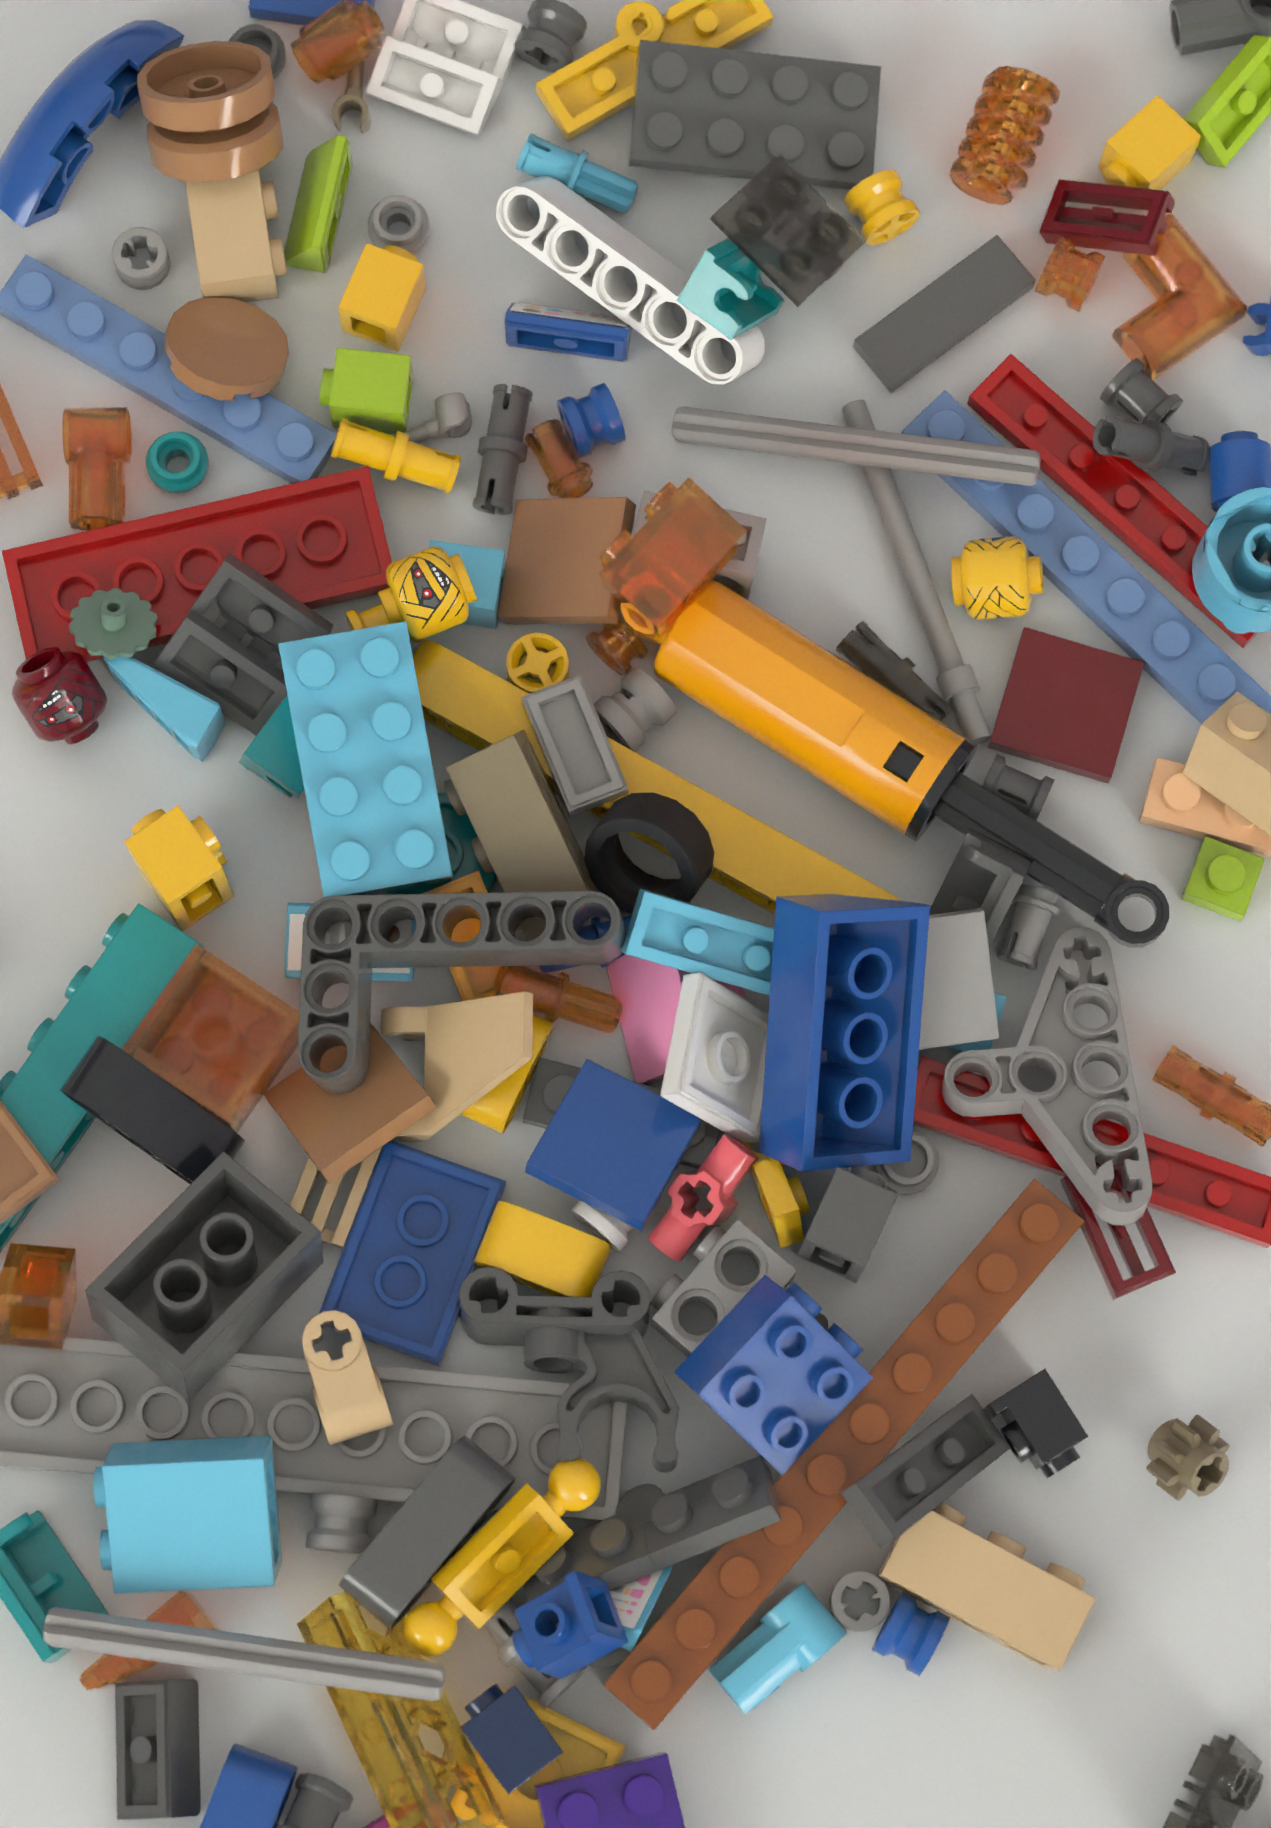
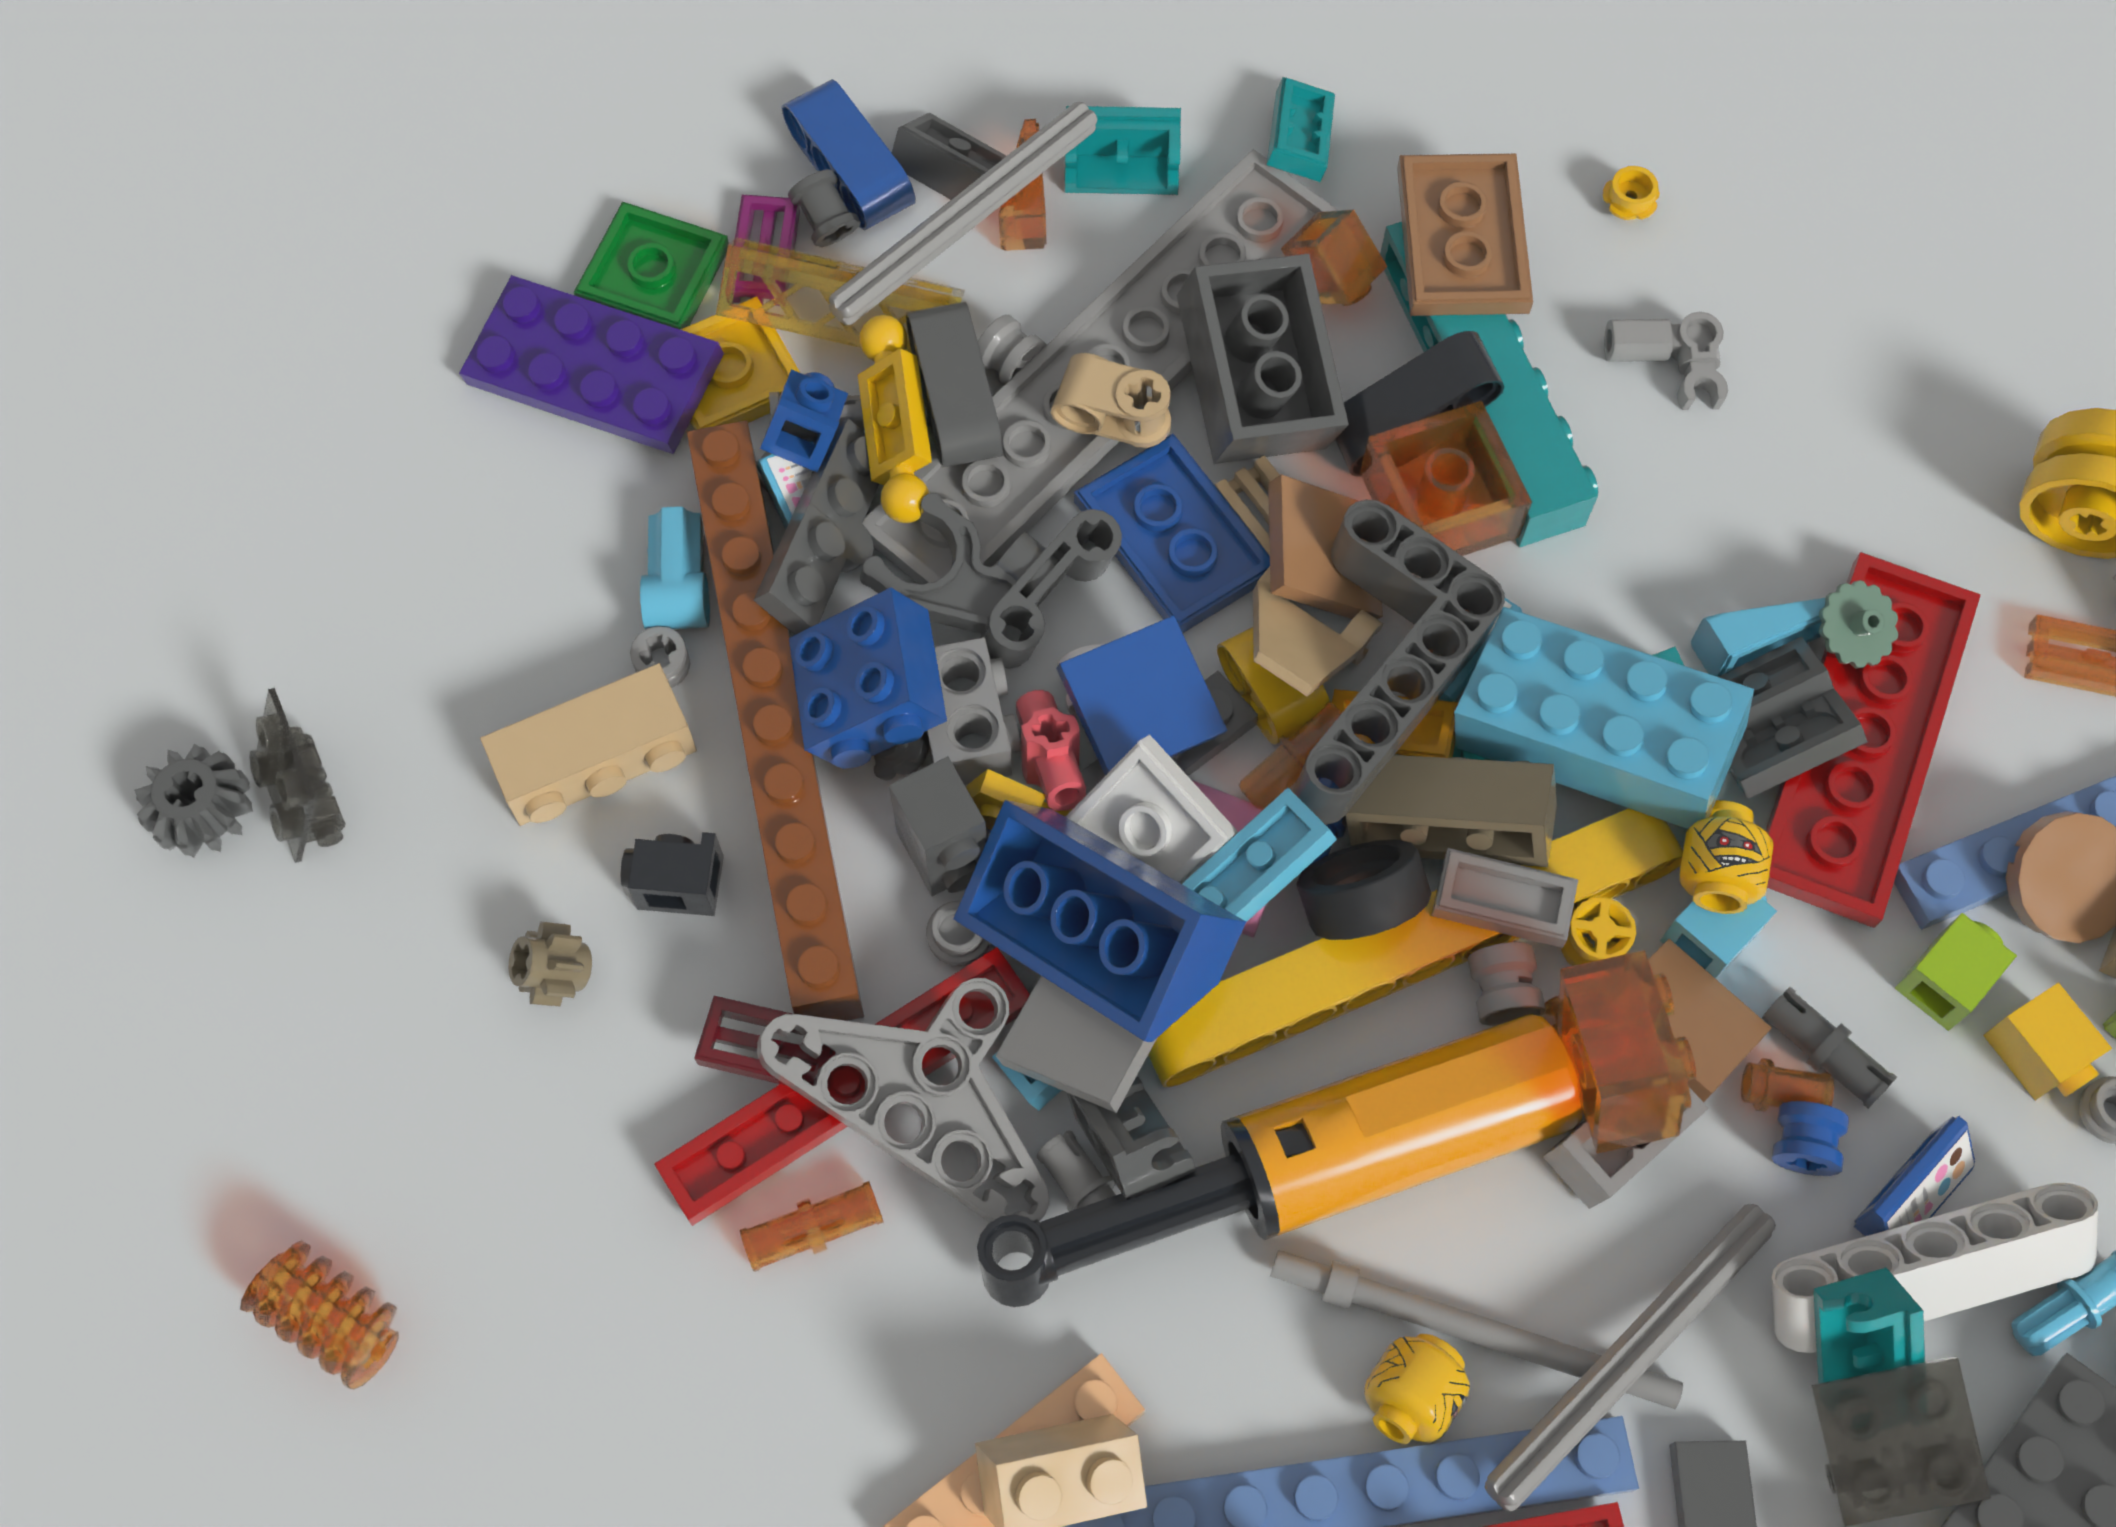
camera: 130 degrees right, 10 degrees down
(59, 695) = (1818, 555): dark red head -> none
(96, 448) = (2034, 725): clear orange piece -> none
(175, 445) = (1991, 769): teal plate -> none
(180, 864) = (1608, 540): yellow brick -> none
(189, 1514) = (1093, 253): medium azure brick -> none
(395, 456) = (1878, 950): yellow pin -> none
(452, 419) = (1886, 1029): light grey hand -> none
(509, 1736) = (764, 346): dark blue brick -> none
(542, 1252) = (1100, 607): yellow beam -> none
(882, 664) = (1385, 1229): clear smoke pin -> none
(911, 1633) = (601, 663): blue wheel -> none
(925, 1471) = (705, 744): dark grey plate -> none
(1018, 787) = (1204, 1254): dark grey bush -> none
(1066, 705) = (1253, 1370): dark red tile -> none
(1222, 878) = (993, 1386): lime plate -> none

